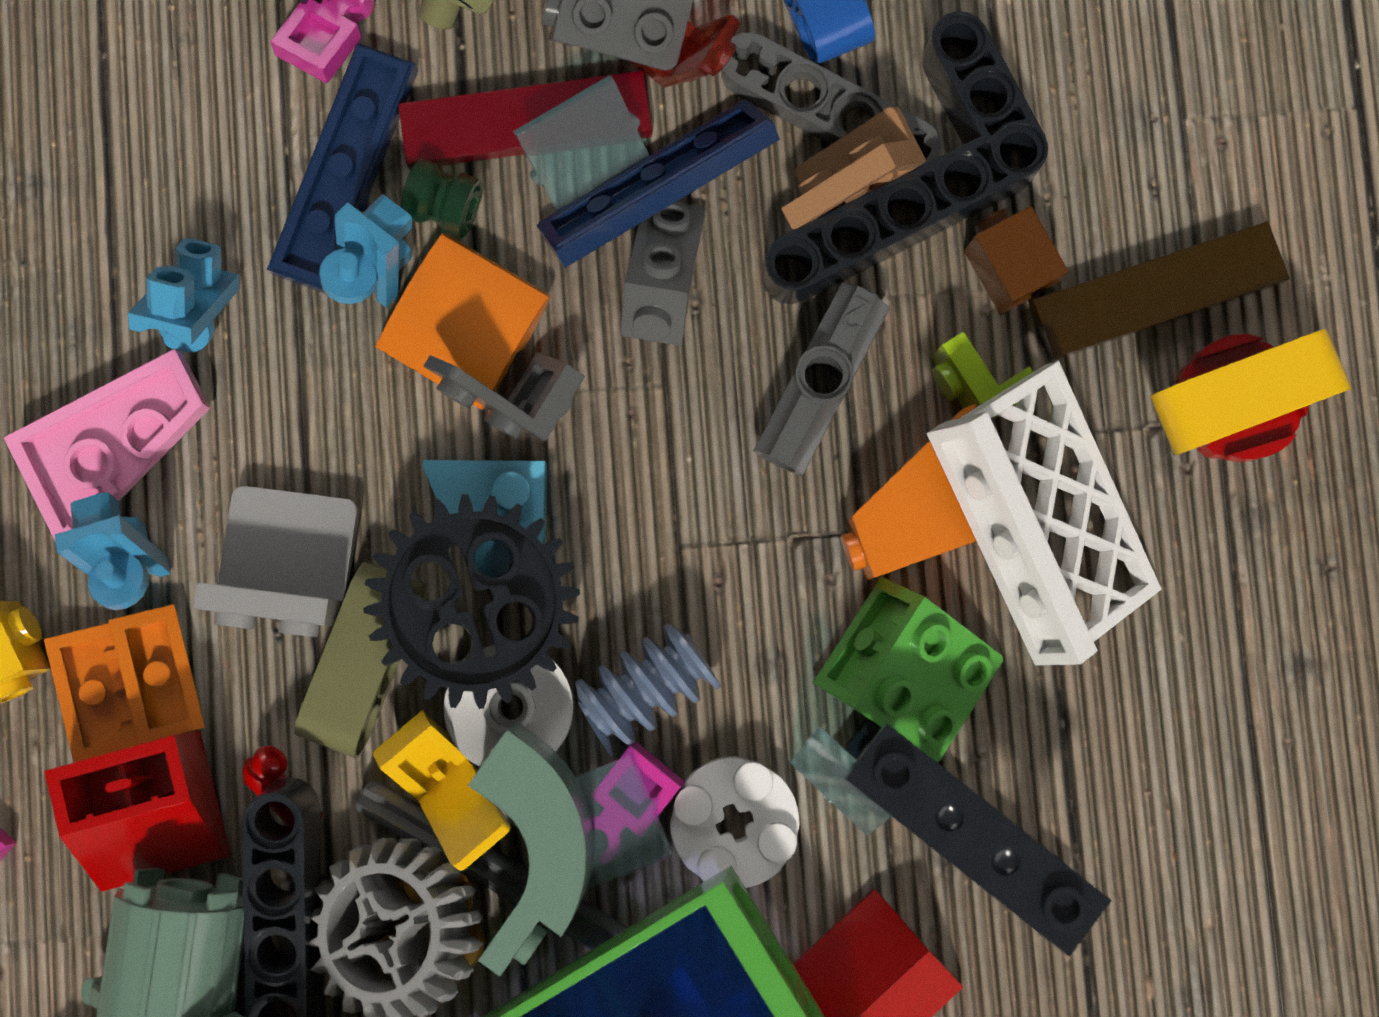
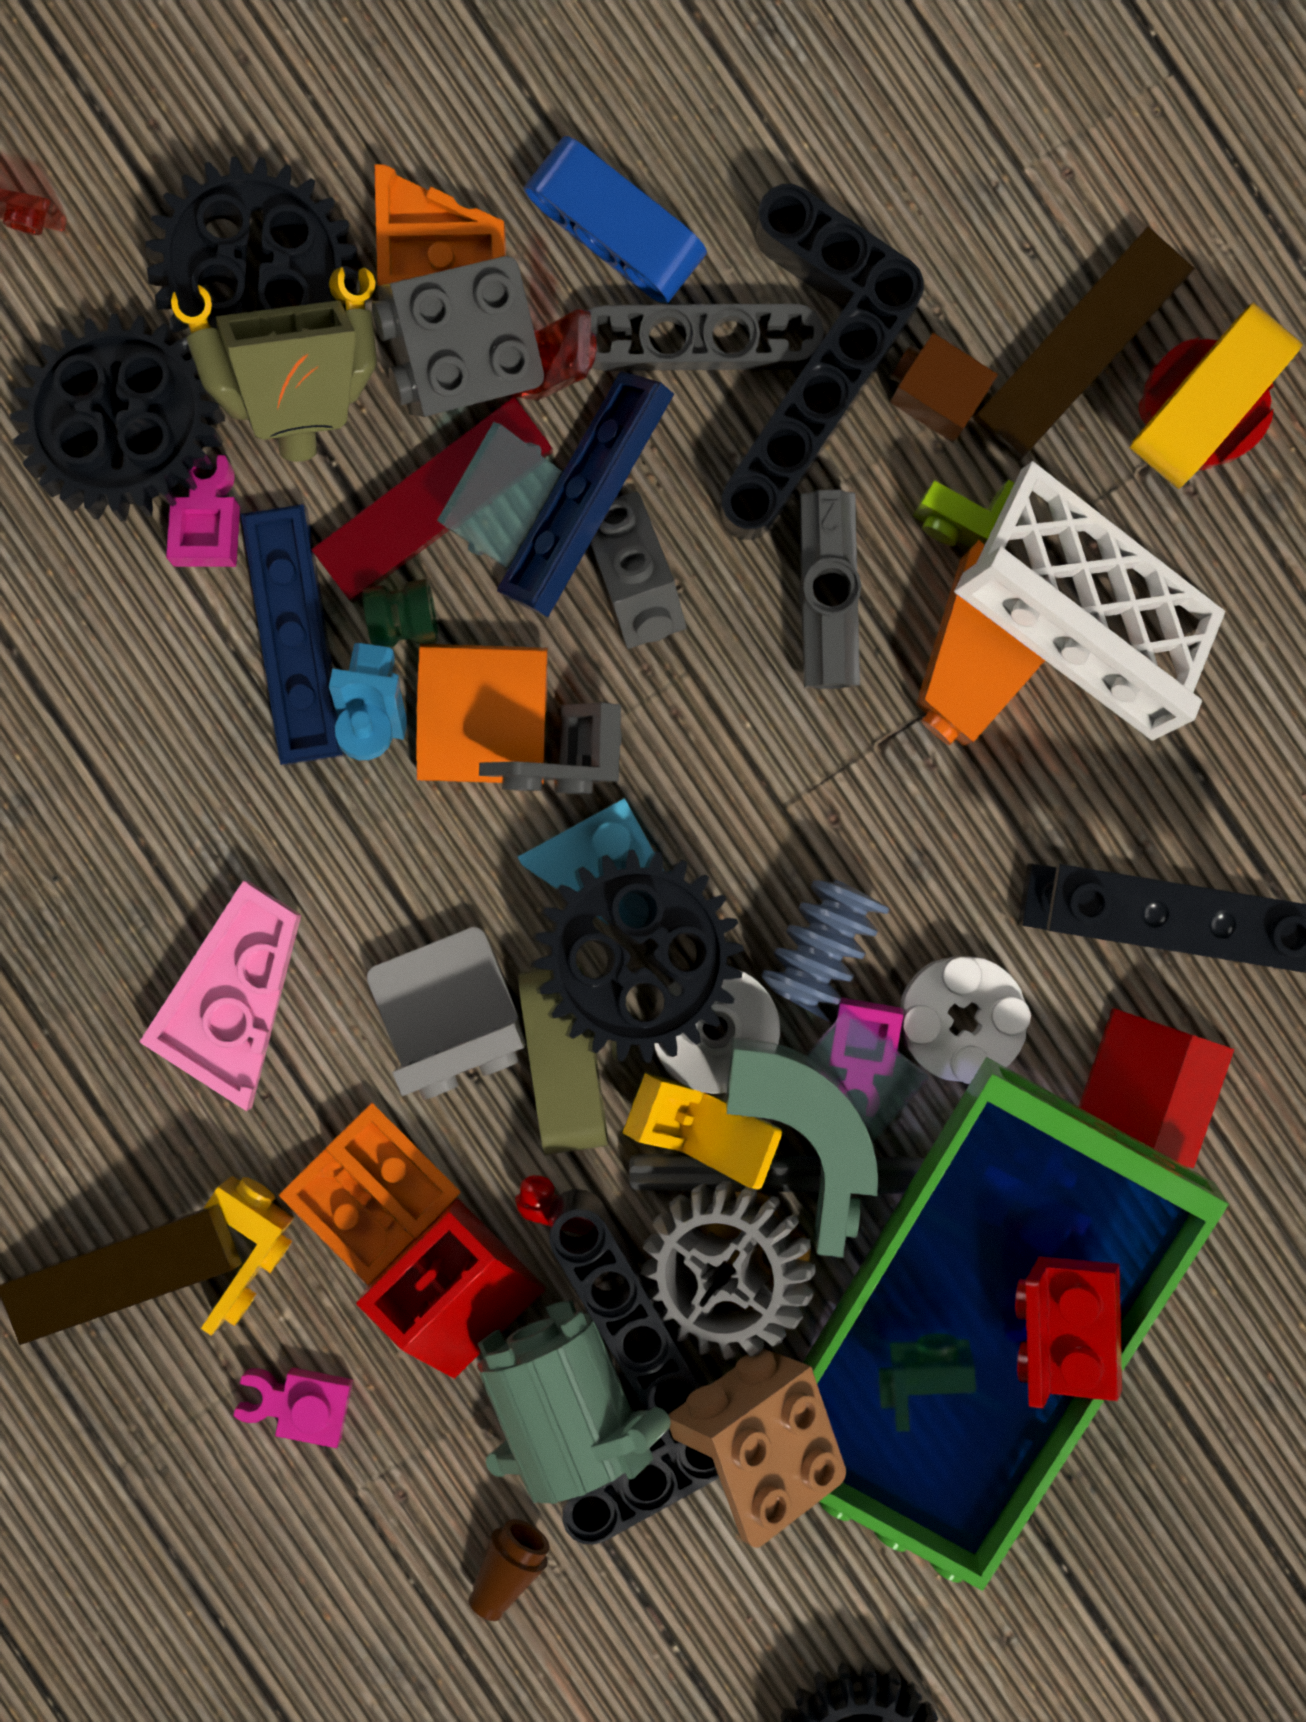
camera: 30 degrees left, 5 degrees up
(111, 551) = (298, 1088): dark azure hips -> none
(186, 296) = (228, 828): dark azure hips -> none
(825, 765) = (1024, 929): clear light blue piece -> none
(854, 166) = (756, 384): medium nougat bracket -> none
(909, 667) = (1042, 802): bright green bracket -> none

